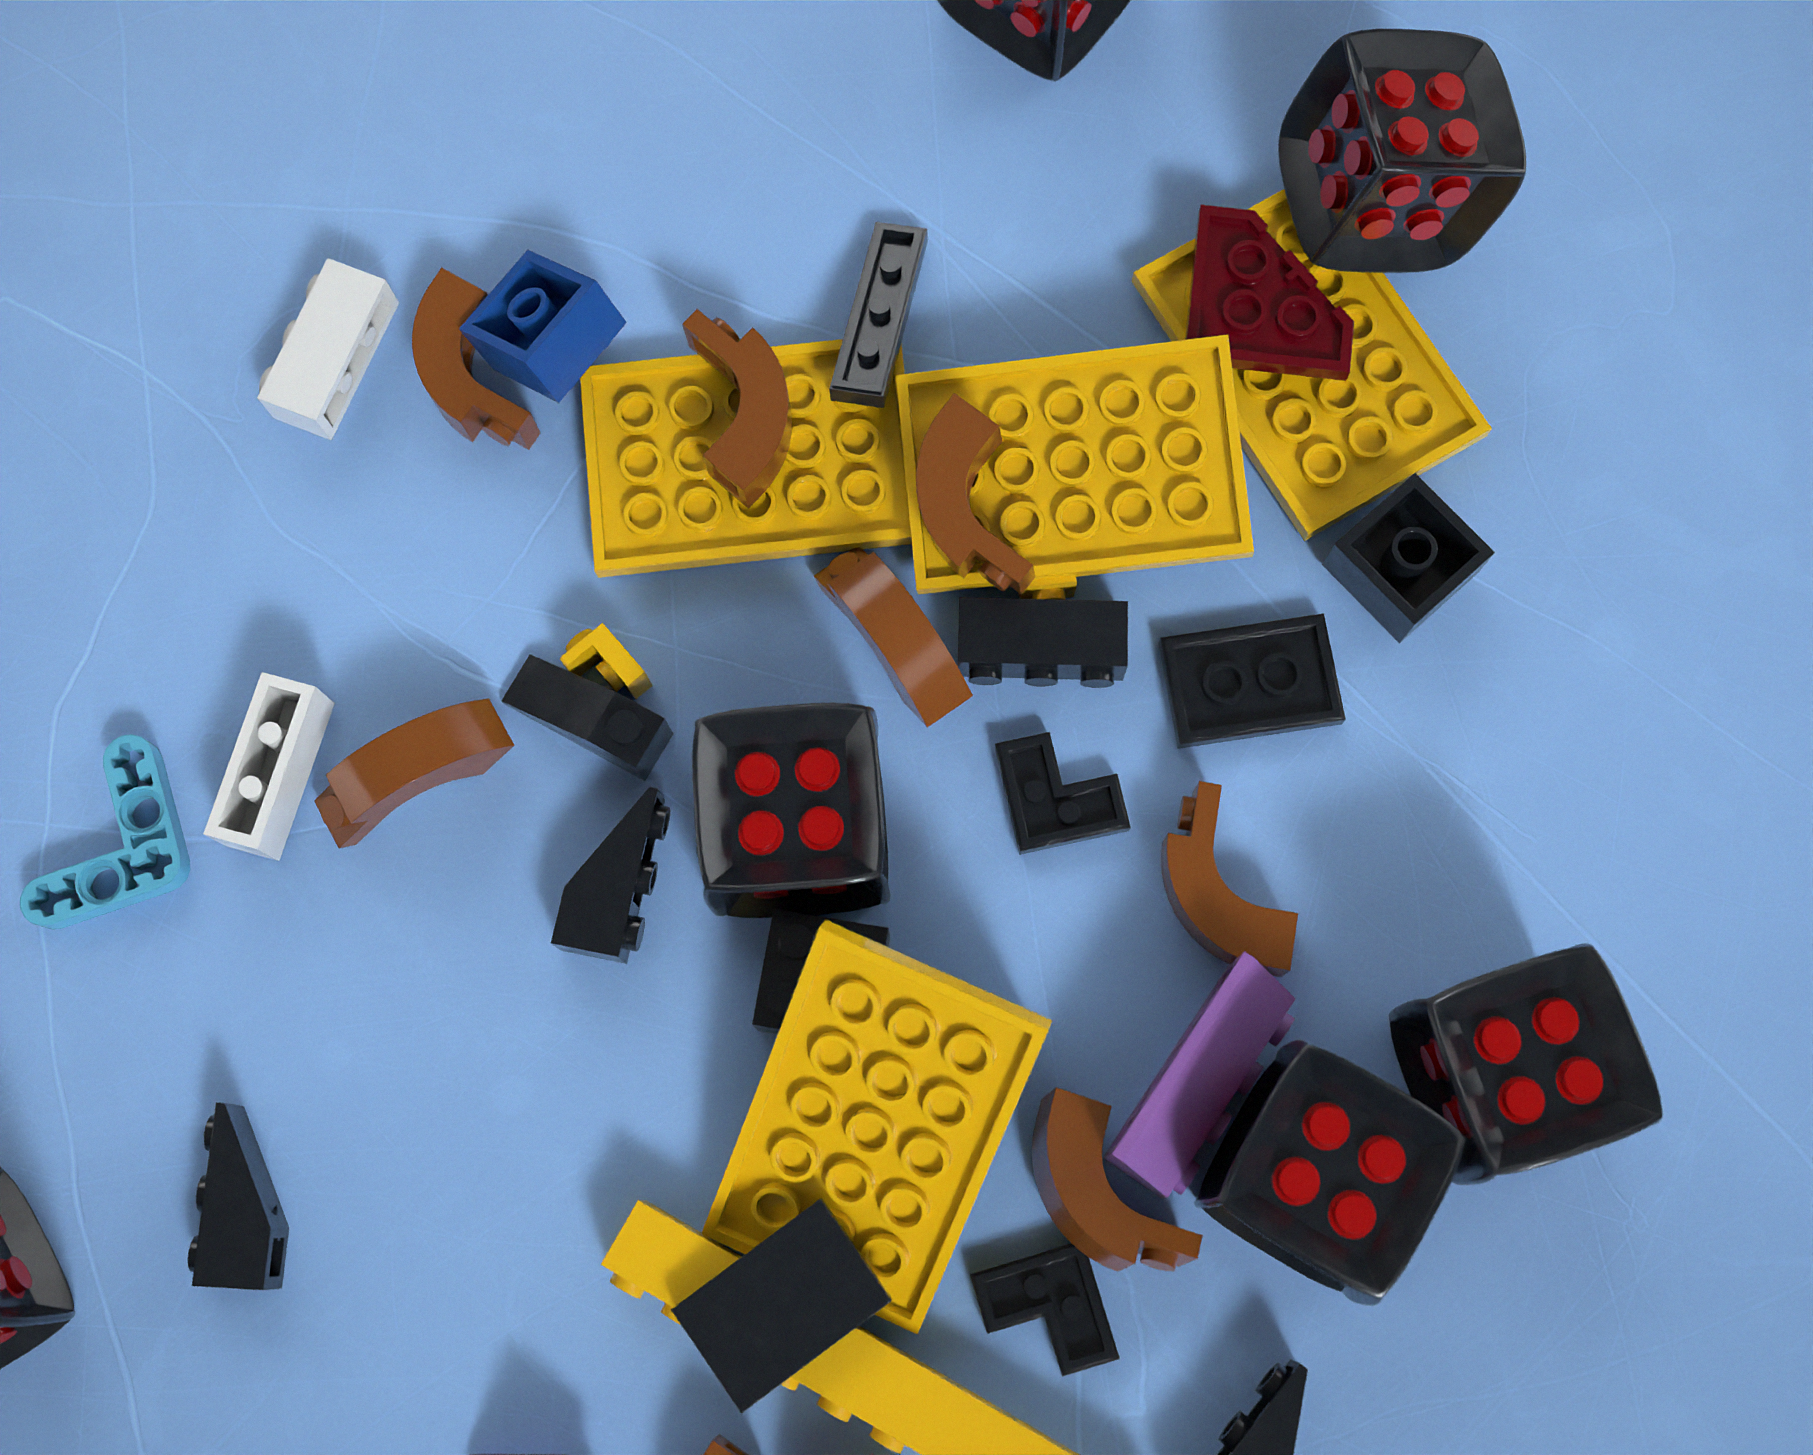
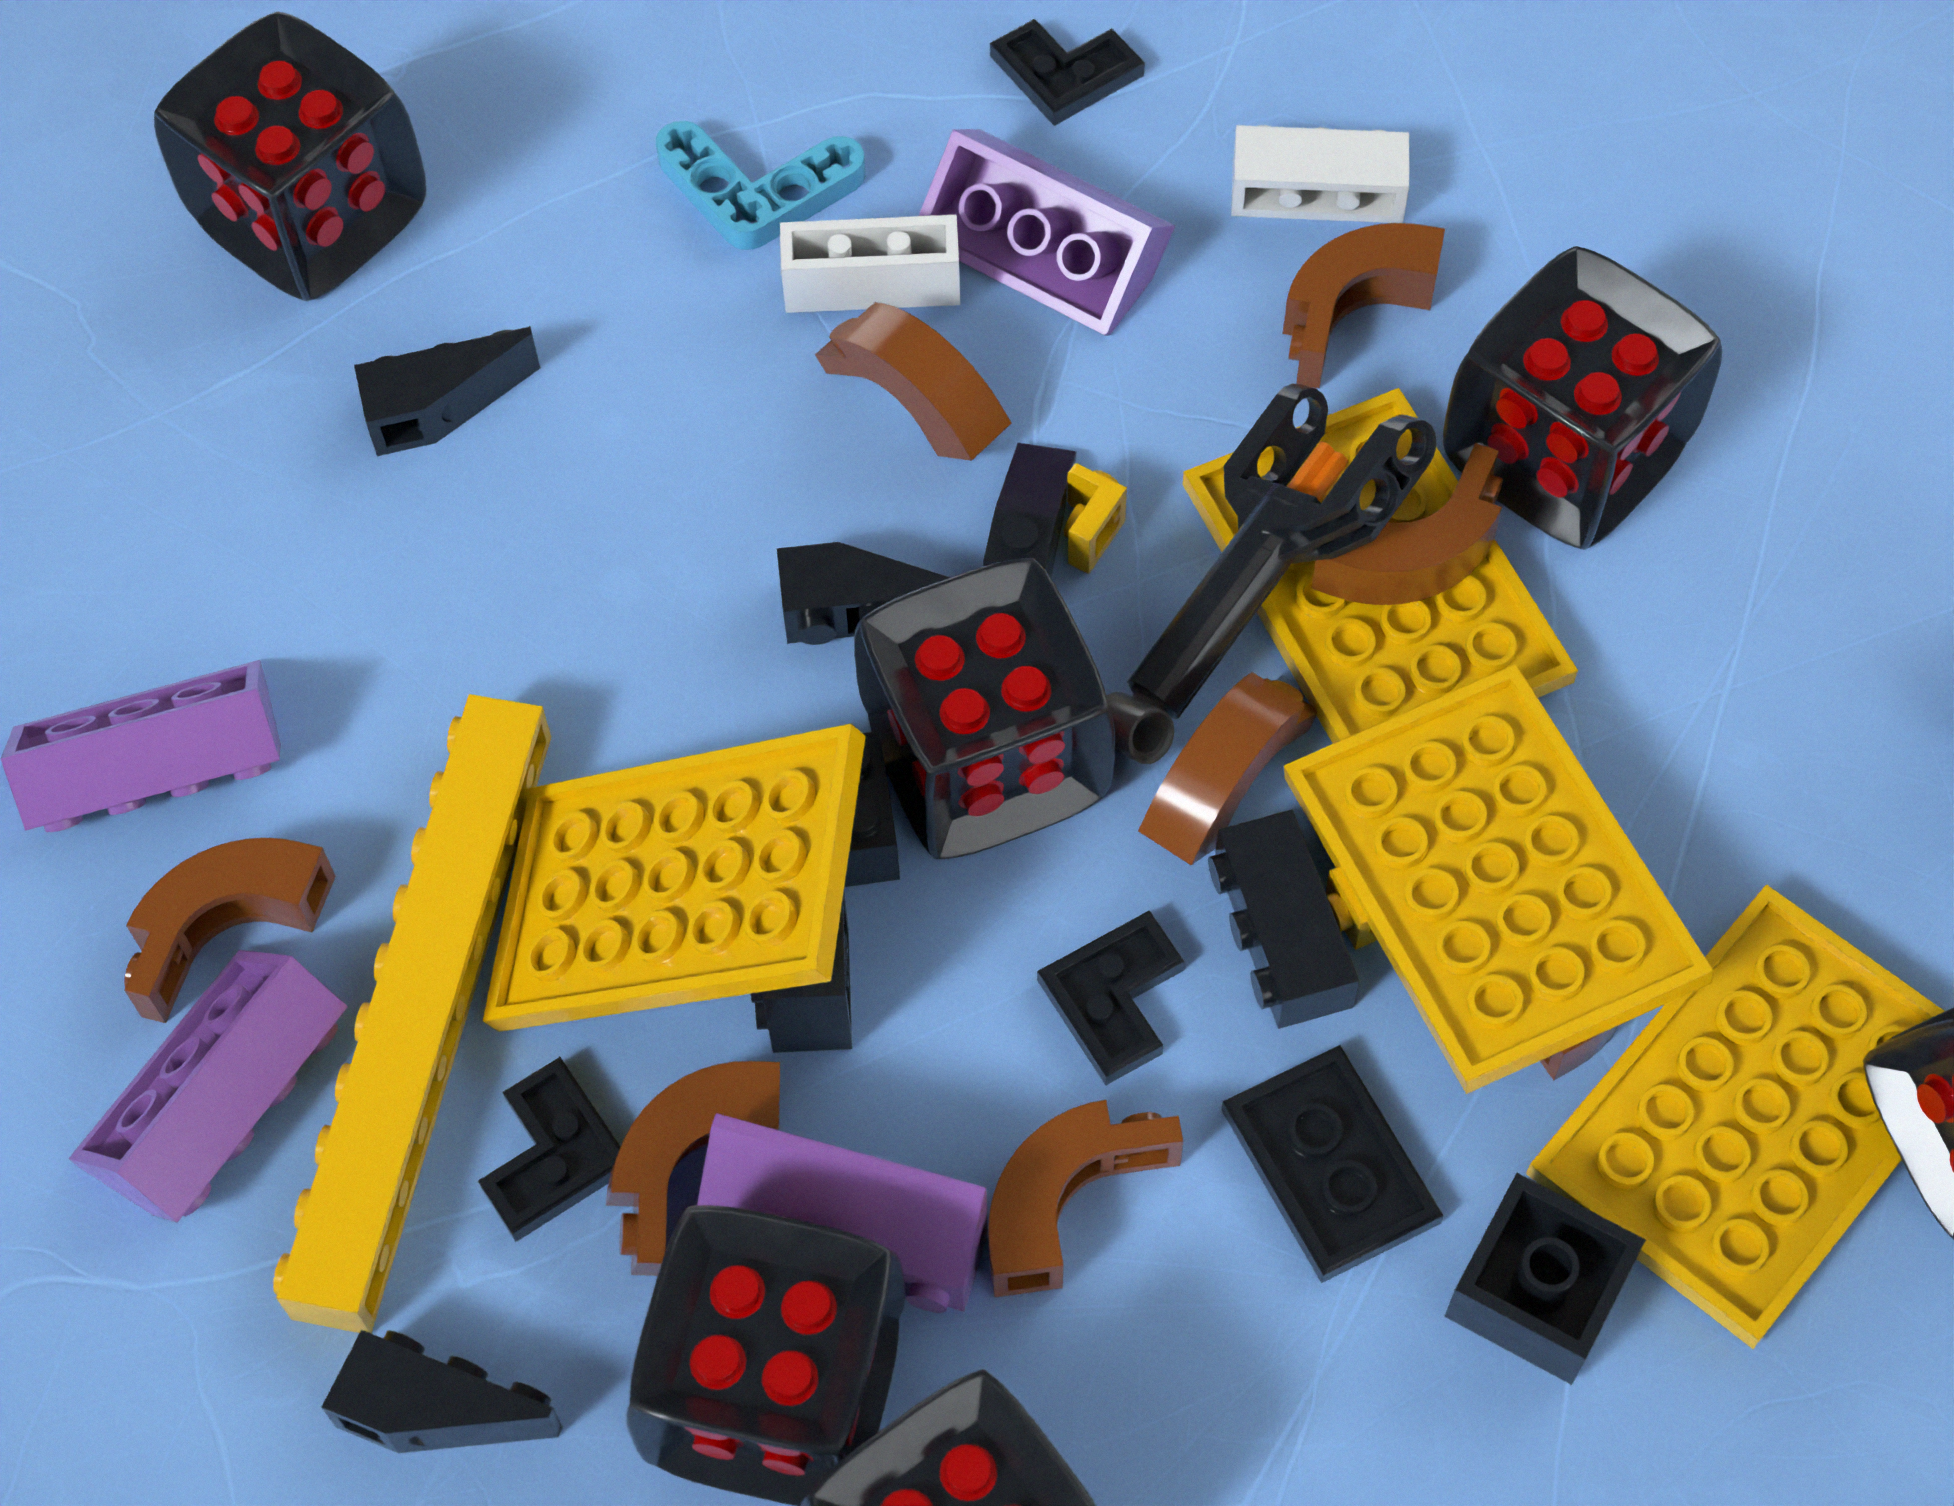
camera: 70 degrees right, 15 degrees down
(118, 536) = (1063, 81): none -> black tile
(287, 604) = (1046, 229): none -> medium lavender slope
(543, 325) = (1417, 331): blue brick -> none
(669, 219) = (1583, 393): none -> black piece
(711, 517) = (1274, 530): none -> black piece
(781, 1305) = (473, 862): black tile -> none
(879, 315) = (1589, 641): tile -> none
(947, 465) = (1394, 742): dark orange arch -> none
(1263, 300) = (1787, 1020): dark red plate -> none

